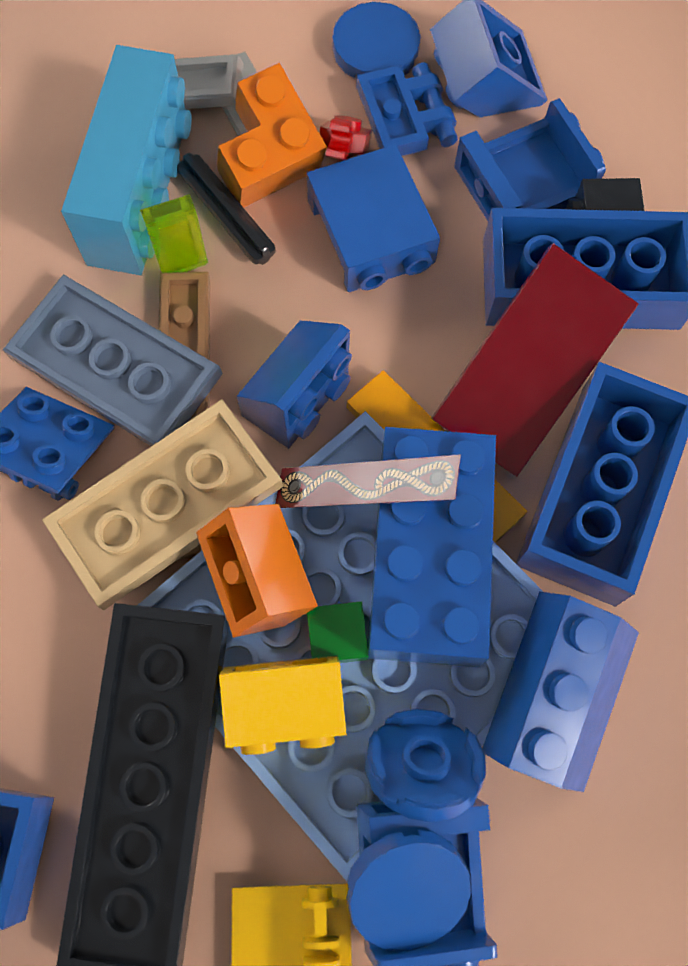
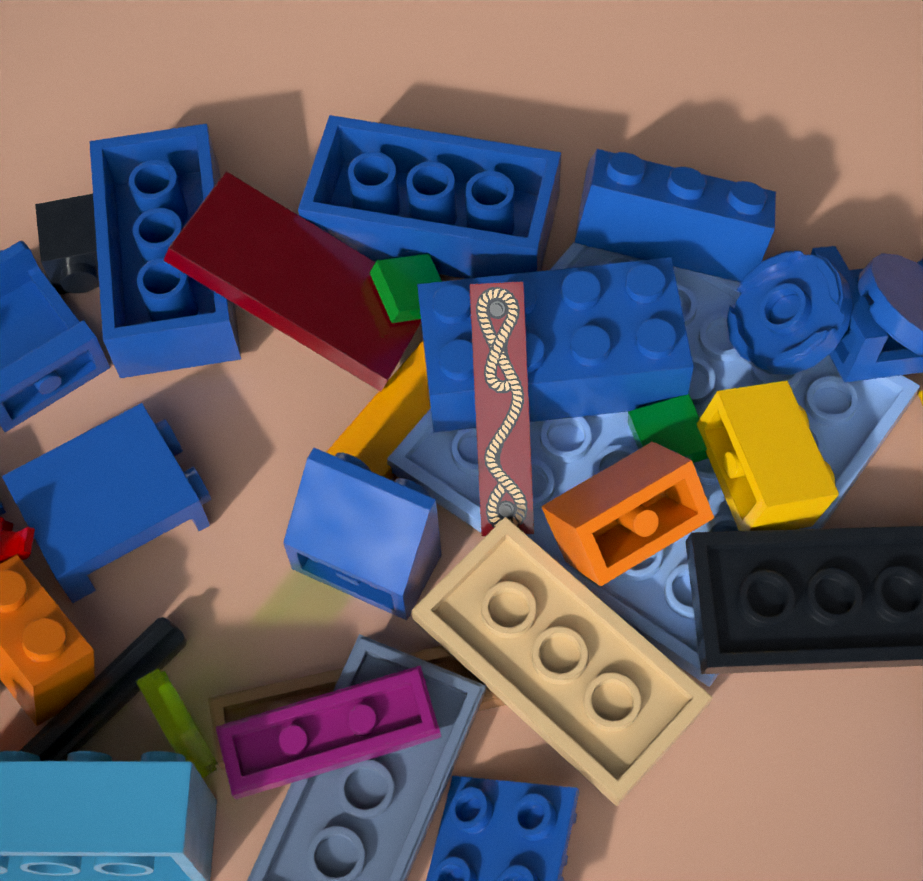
camera: 95 degrees left, 10 degrees down
(148, 335) = (327, 732): none -> magenta tile
(521, 451) = (397, 284): none -> green tile

